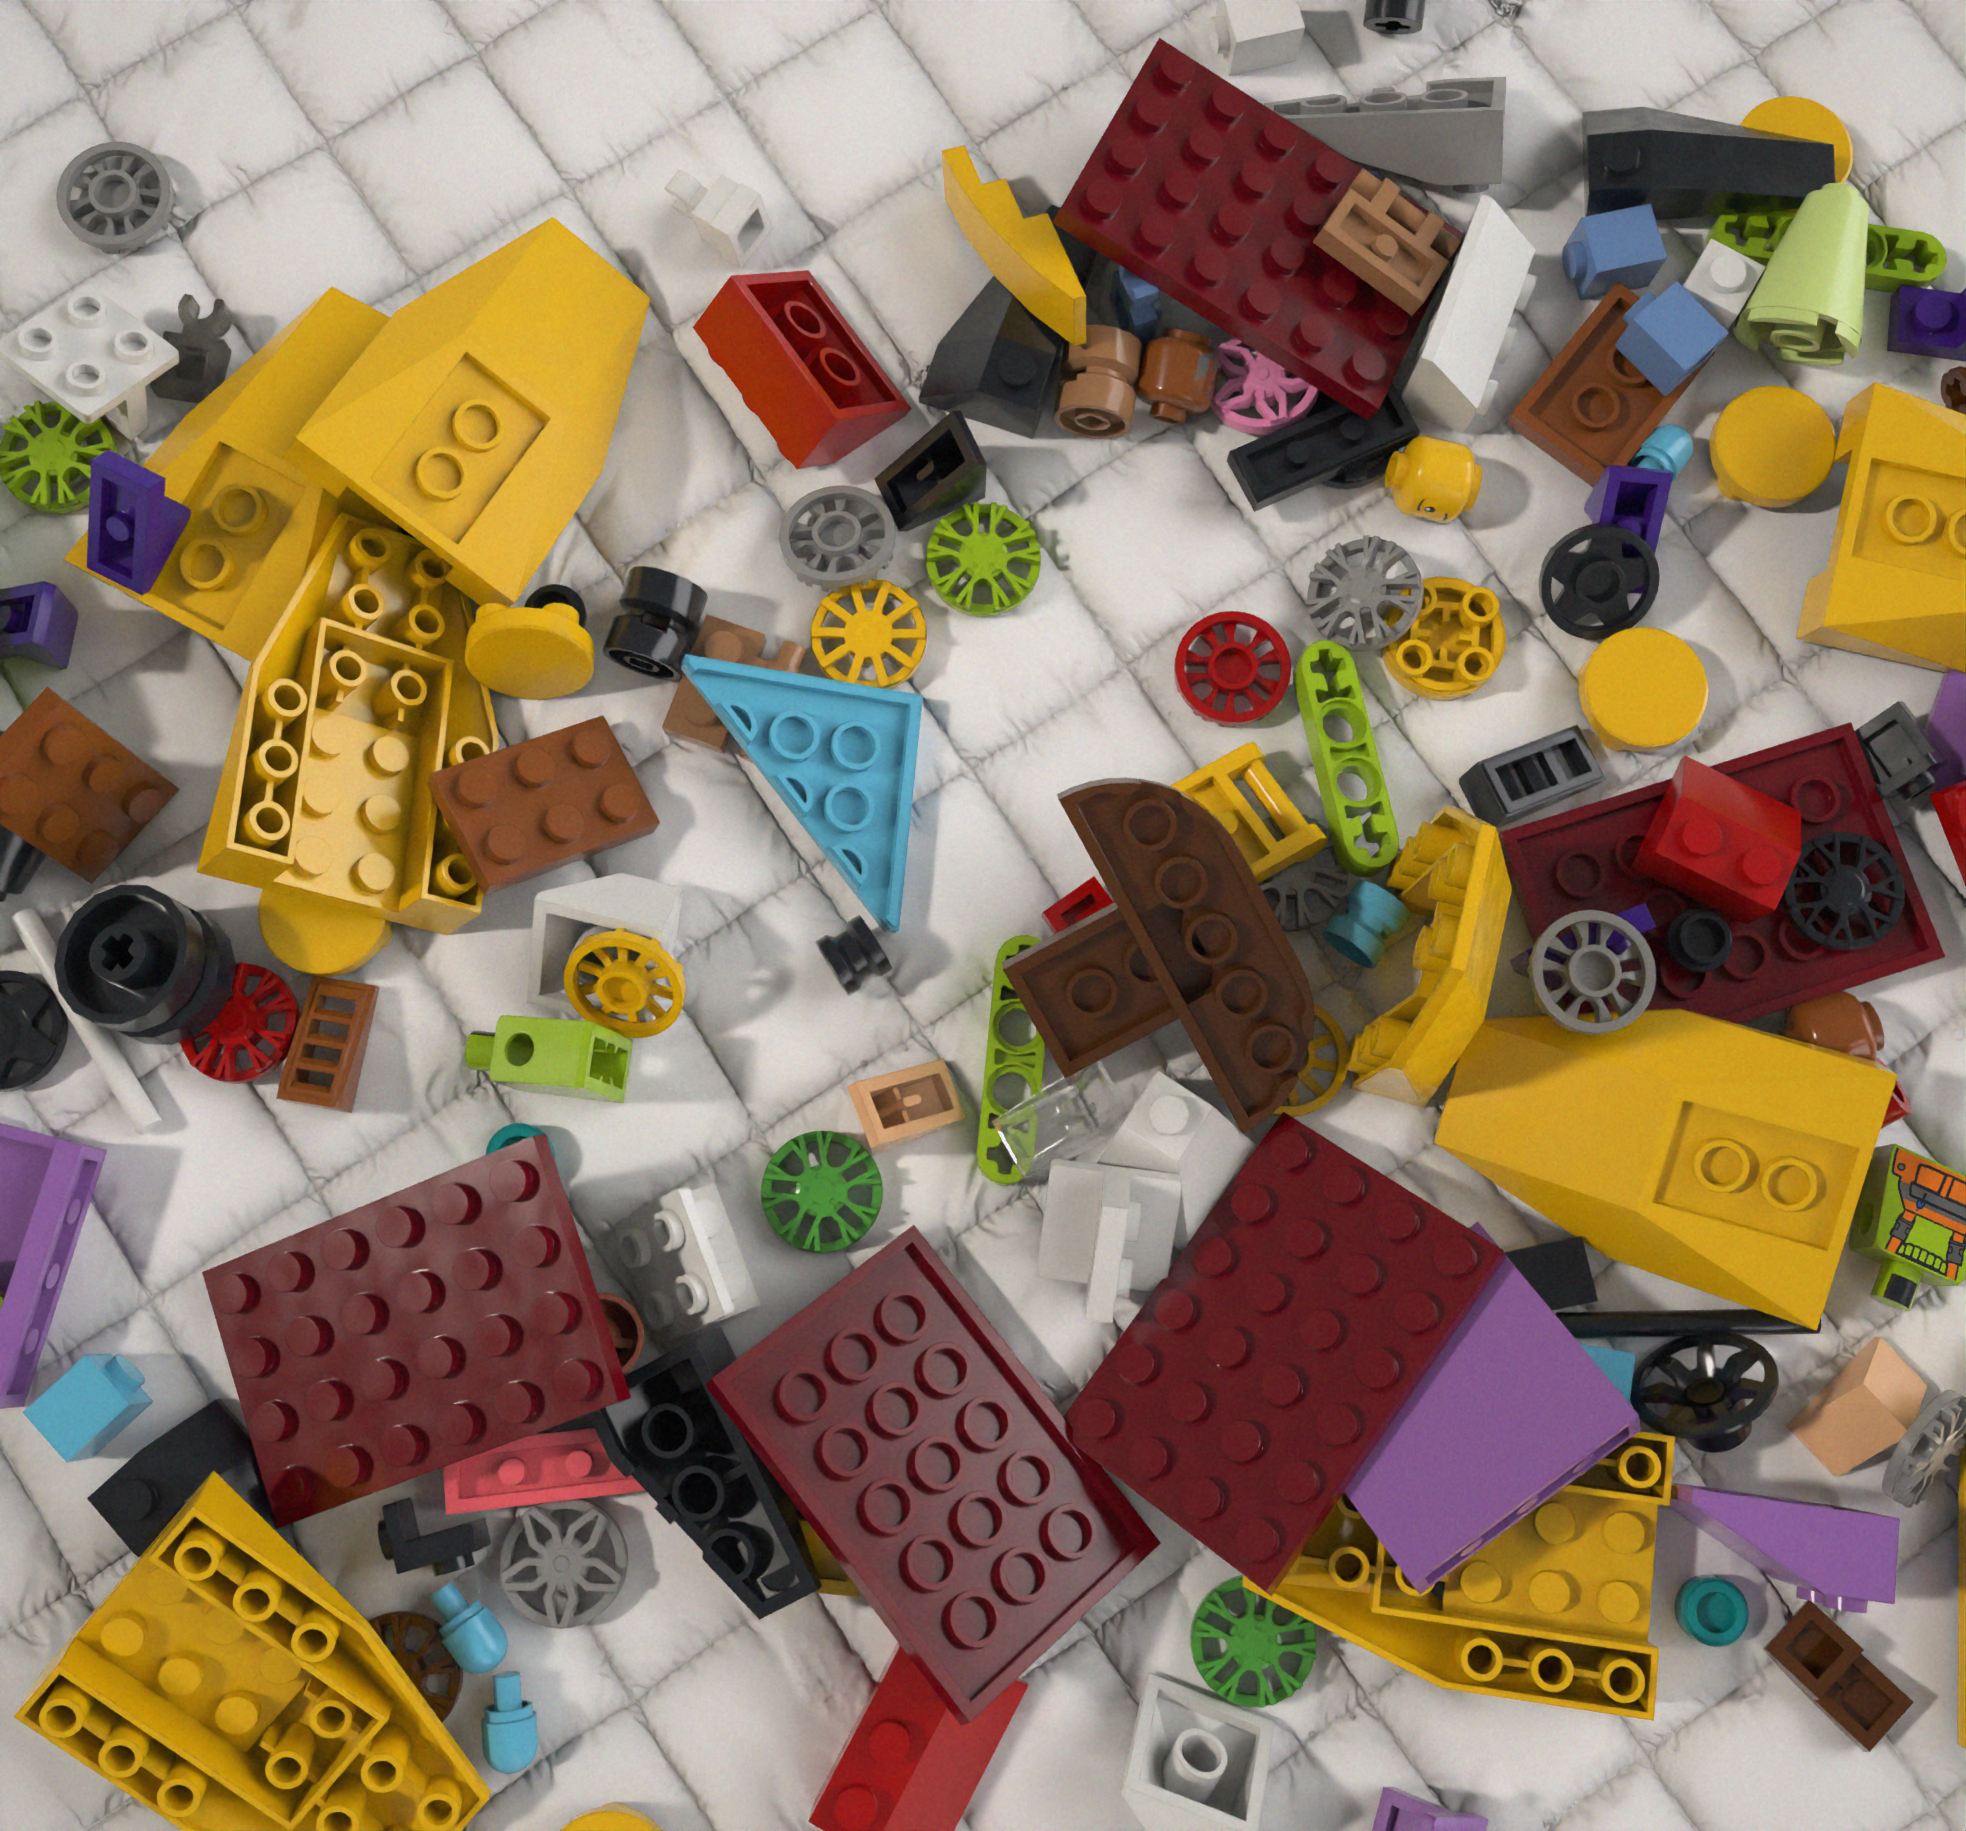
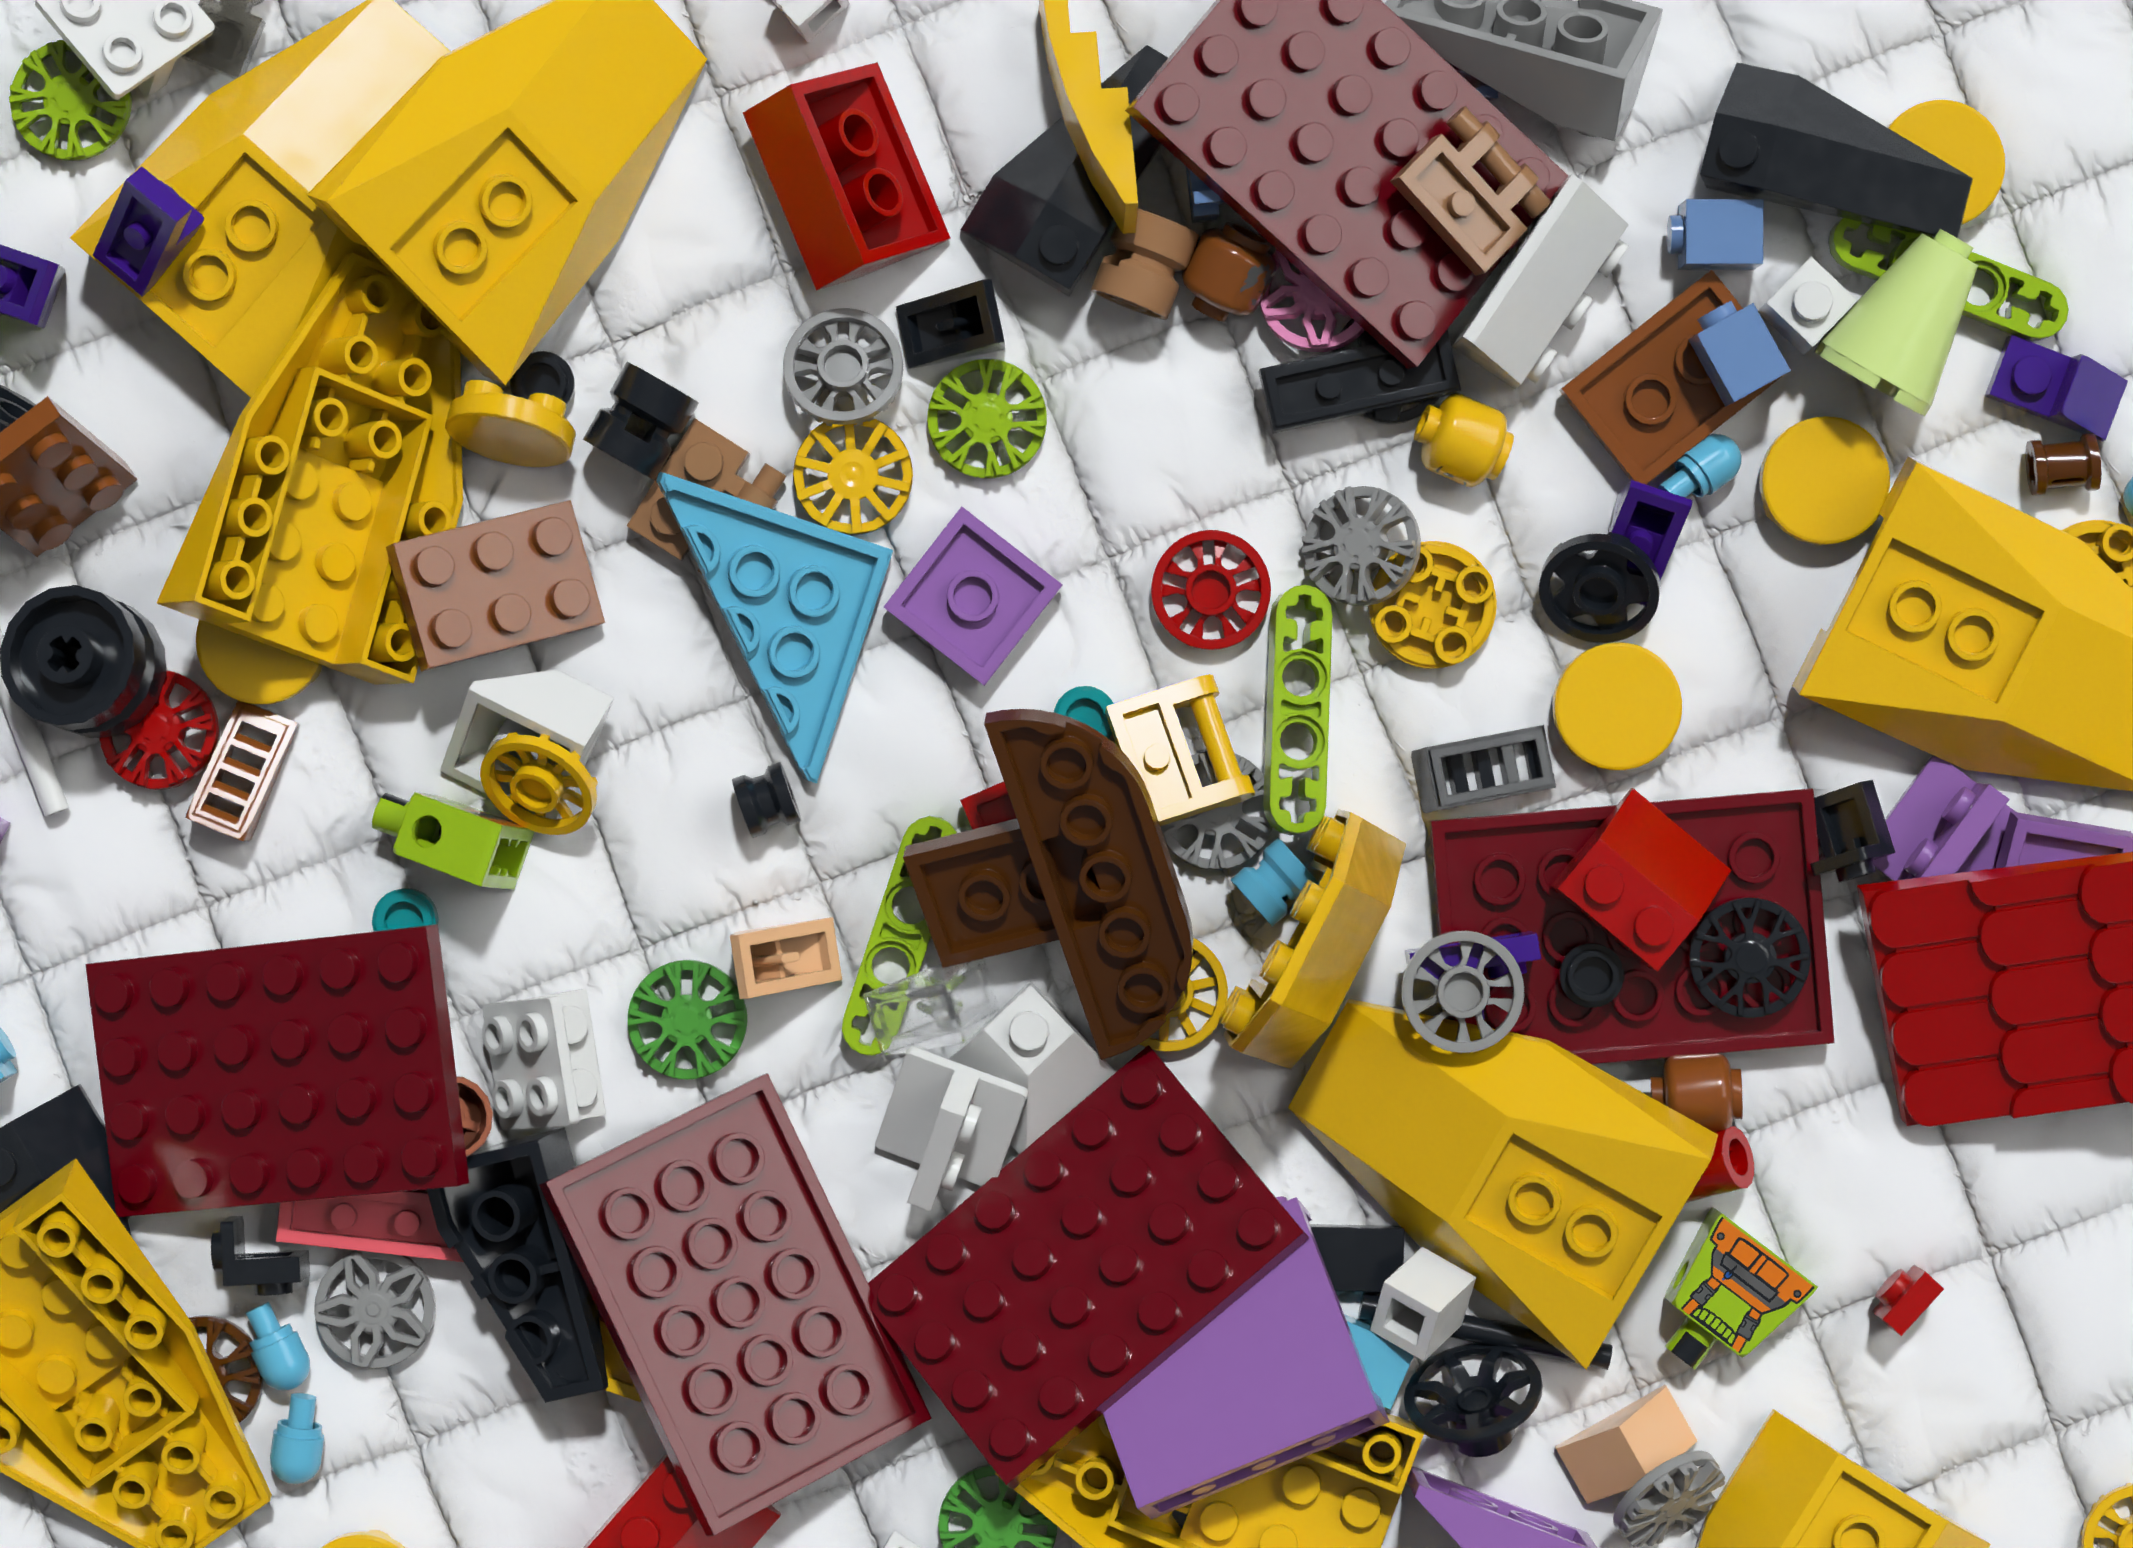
camera: 15 degrees right, 10 degrees up
(1008, 720) = (973, 596): none -> medium lavender plate
(1629, 1304) = (1423, 1303): none -> white brick

